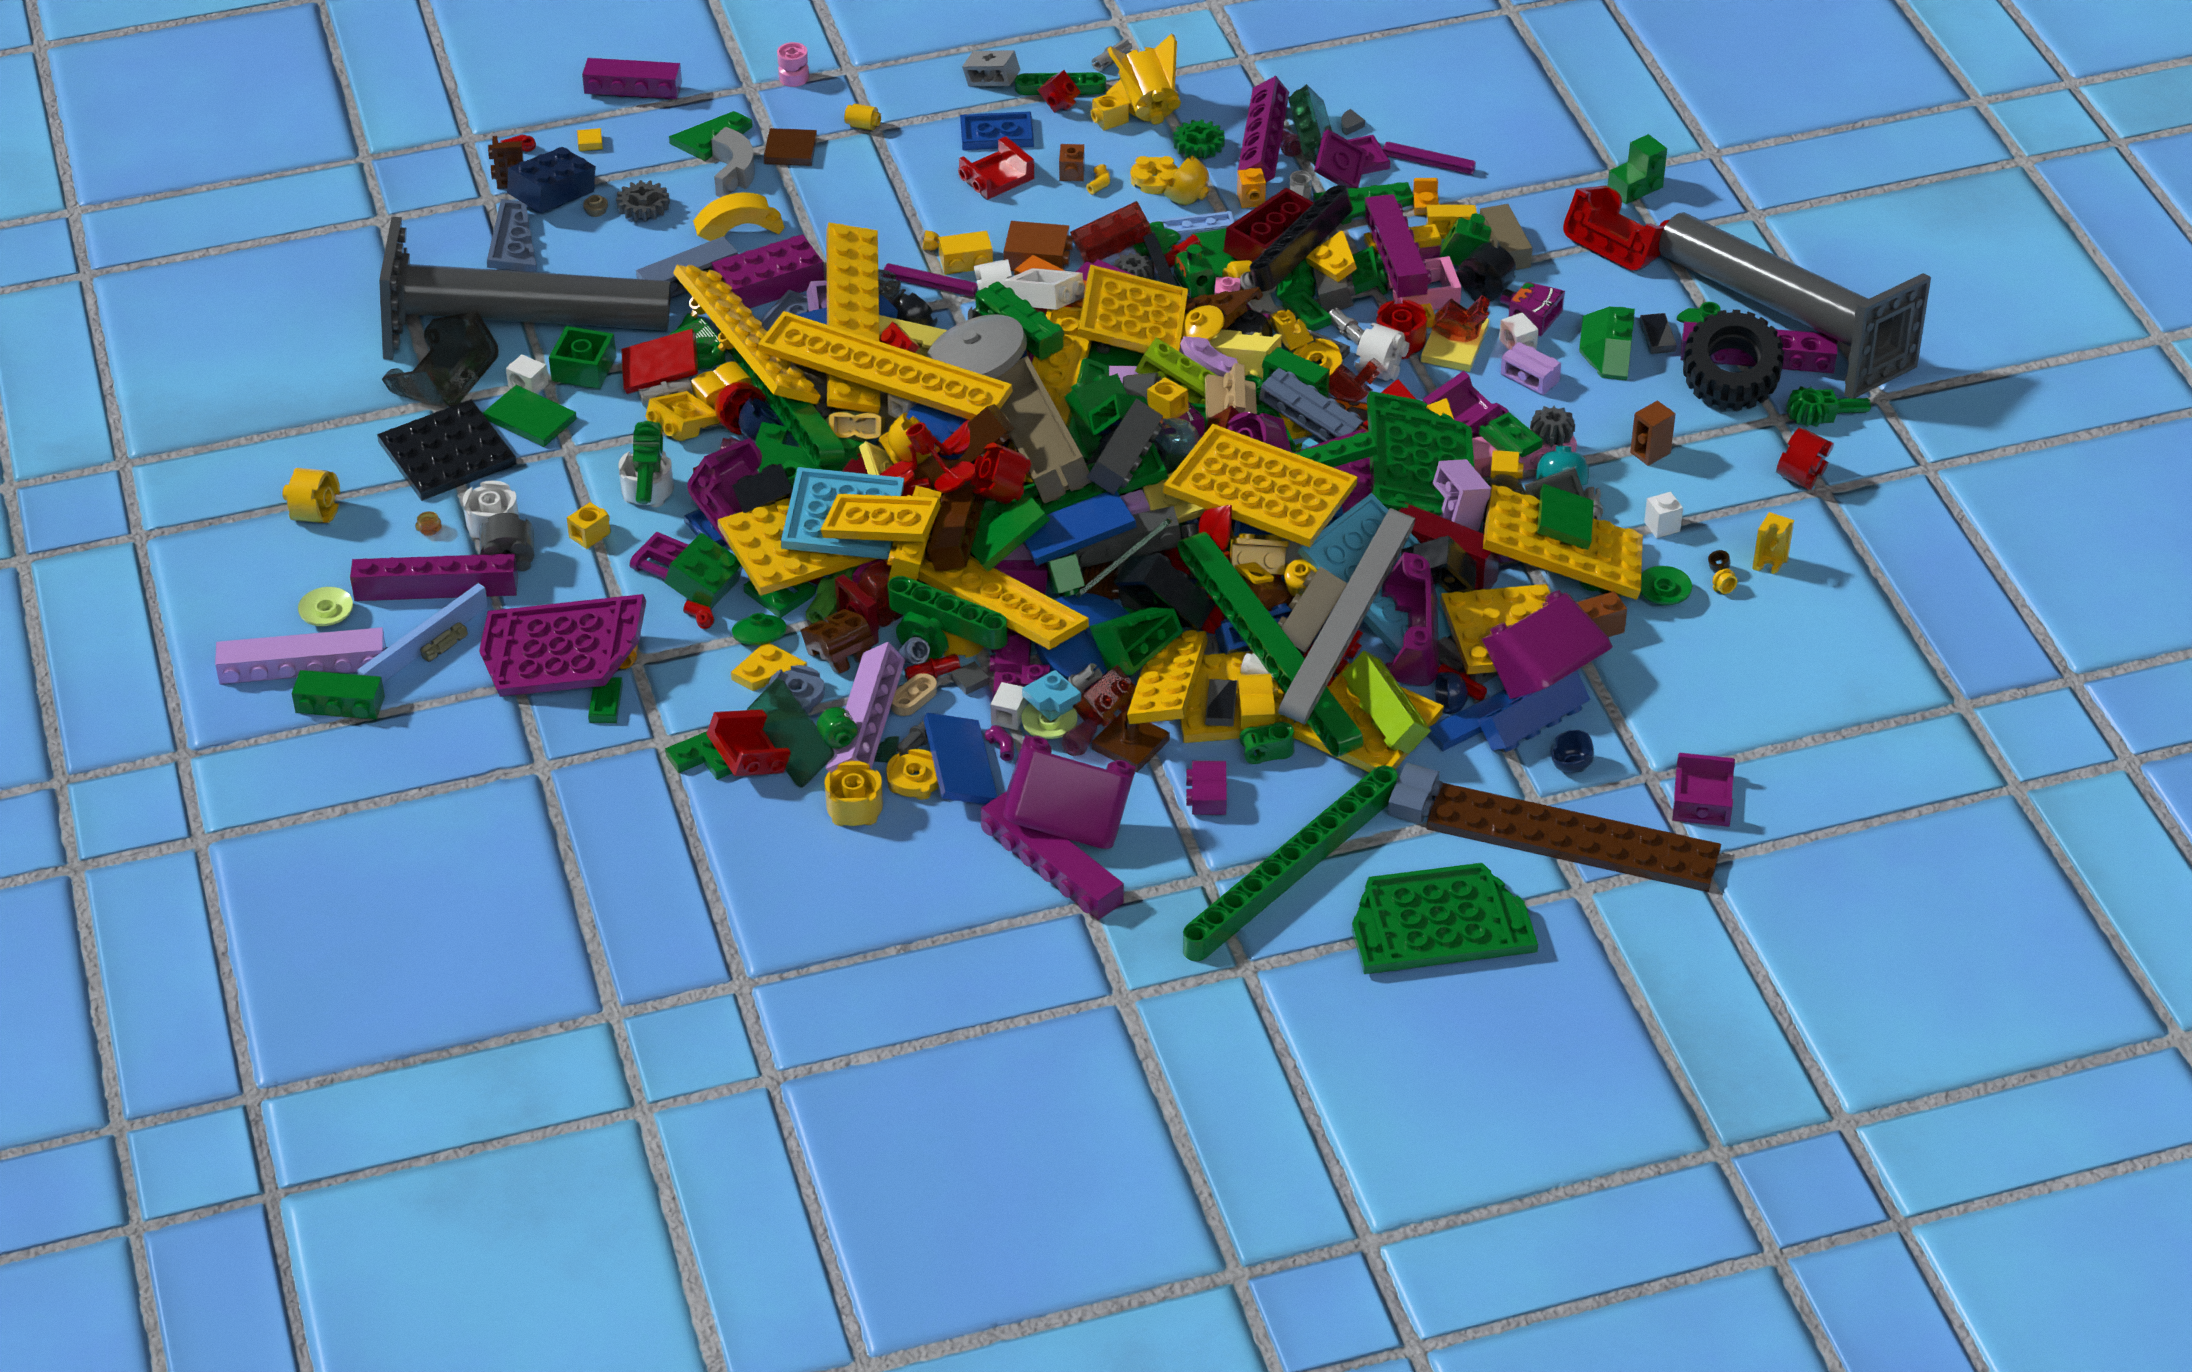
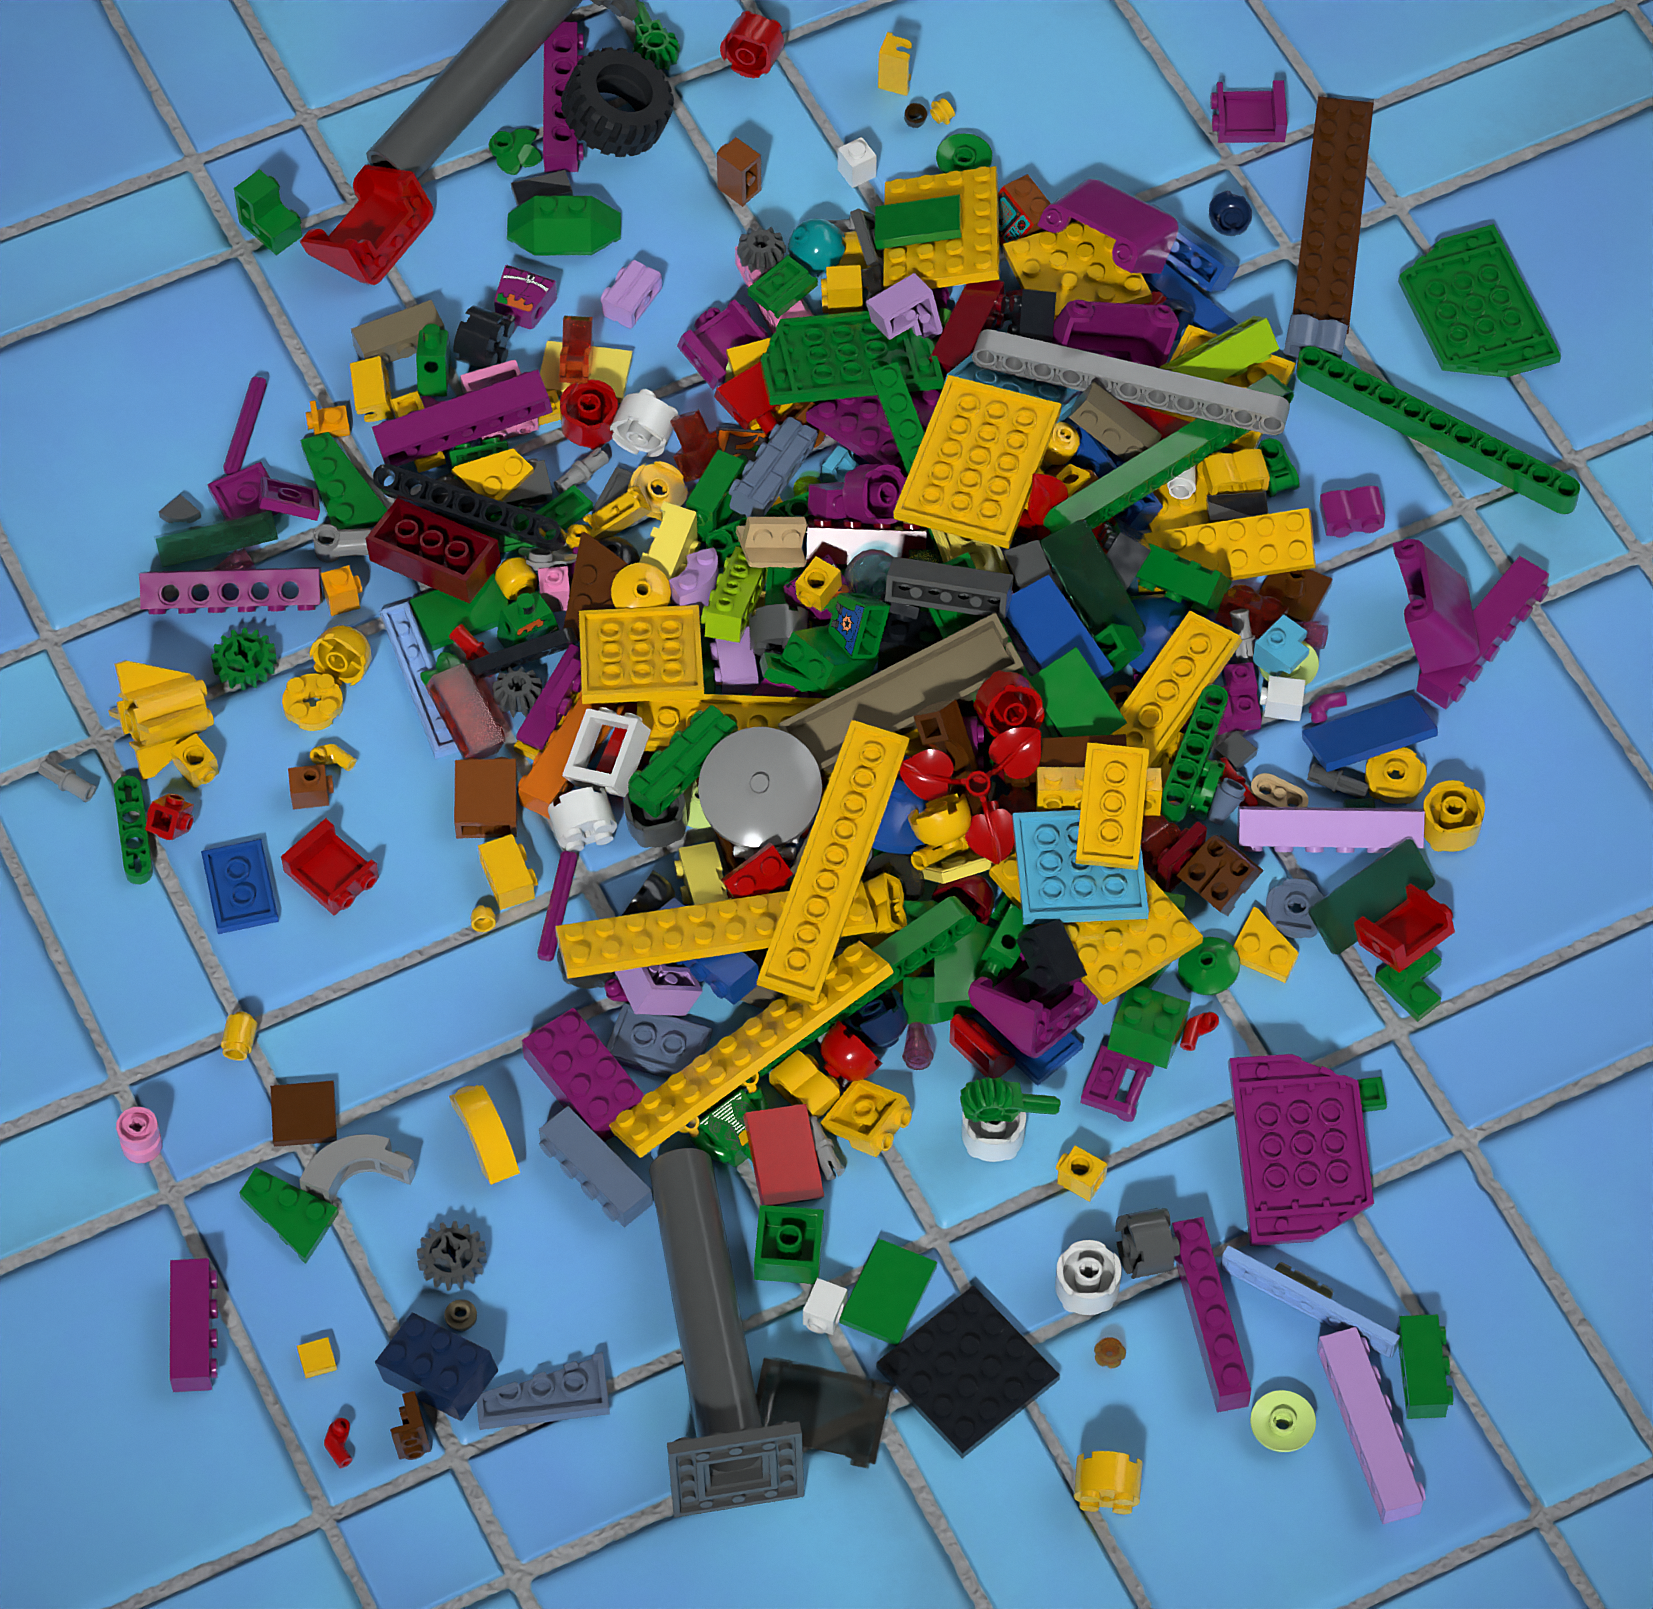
camera: 100 degrees left, 15 degrees up
(837, 727) = (1385, 831): green head -> none
(991, 68) = (130, 916): light grey brick -> none
(1518, 329) = (574, 303): white brick -> none

